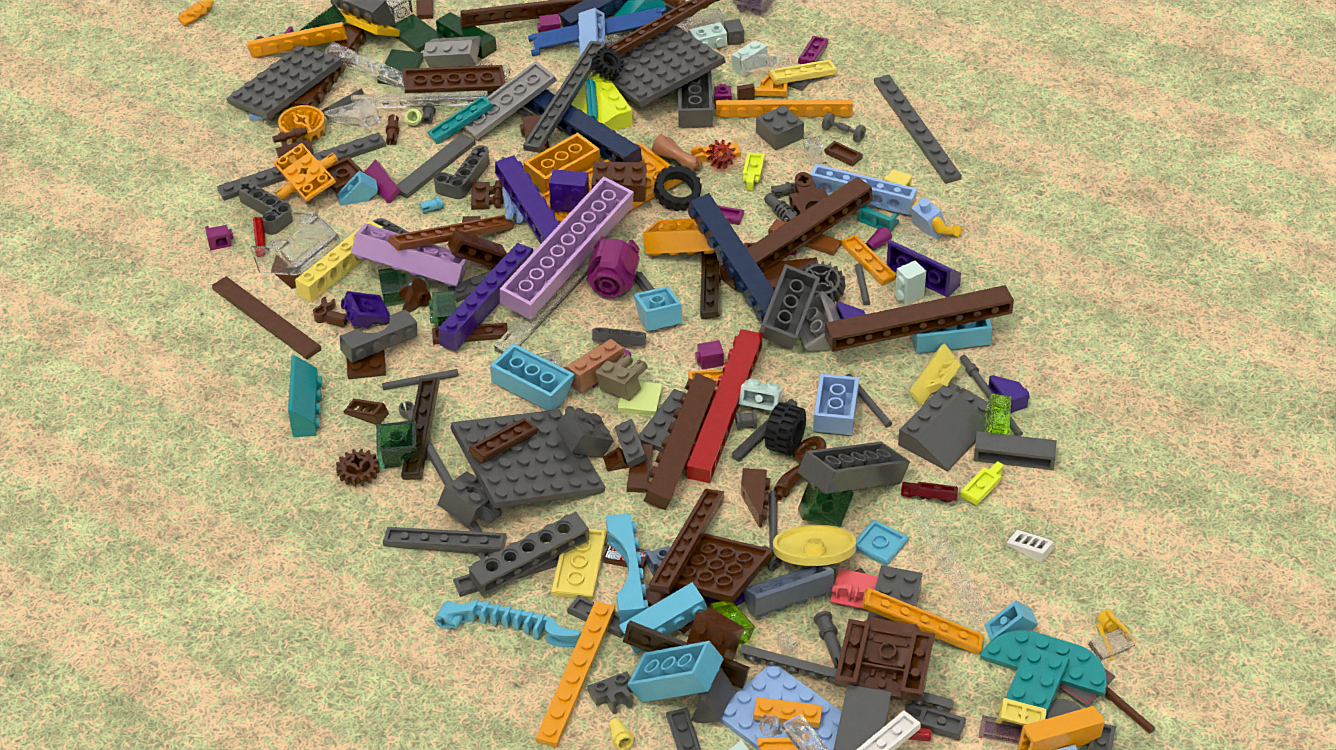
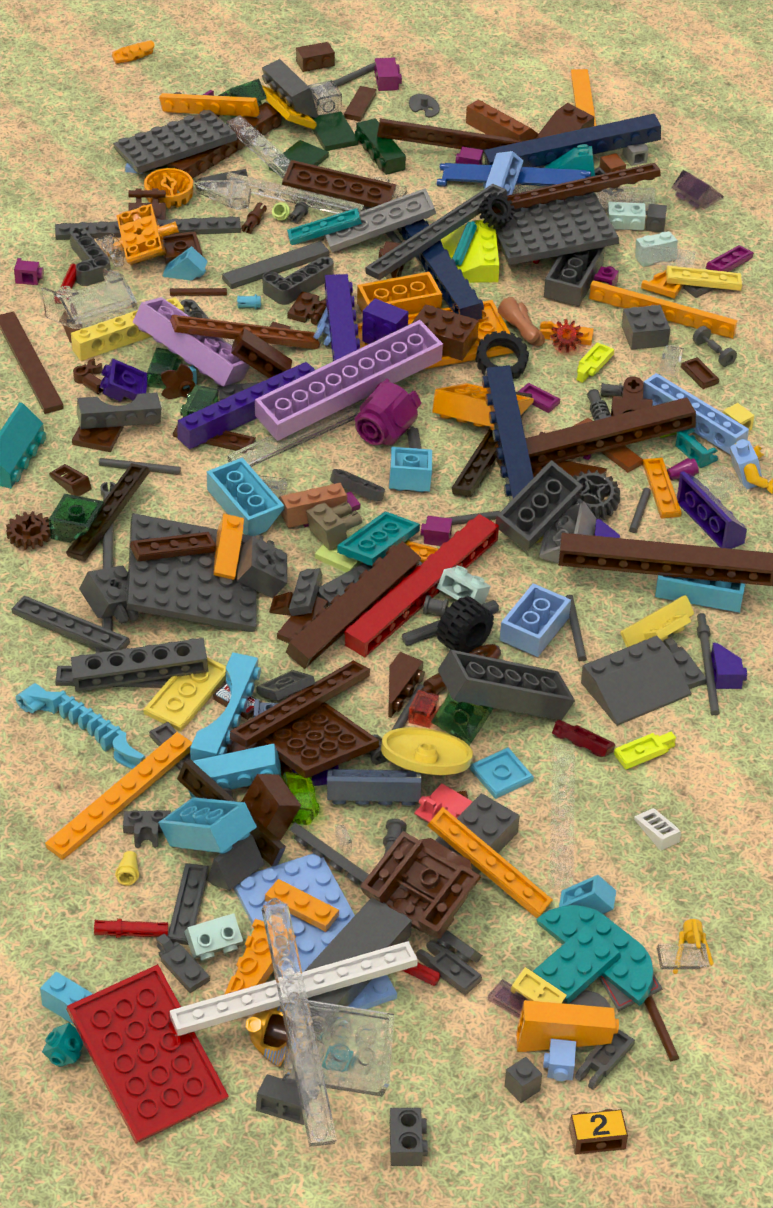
camera: 20 degrees right, 0 degrees up
(287, 193) = (113, 249): none -> clear hinge
(377, 210) = (198, 291): none -> reddish brown bar
(385, 184) = (215, 266): magenta tile -> none
(452, 51) = (354, 158): light grey slope -> none
(546, 418) = (228, 546): none -> light orange slope
(662, 529) = (285, 685): none -> dark grey tile
(666, 377) = (377, 537): none -> teal plate
(734, 332) = (465, 518): none -> dark grey bar
(746, 92) = (632, 281): reddish brown tile -> none
(787, 510) = (423, 708): none -> clear red brick
(910, 283) = (685, 522): light aqua brick -> none
(998, 414) = (696, 687): clear neon green brick -> none
(1015, 450) = (698, 727): dark grey brick -> none

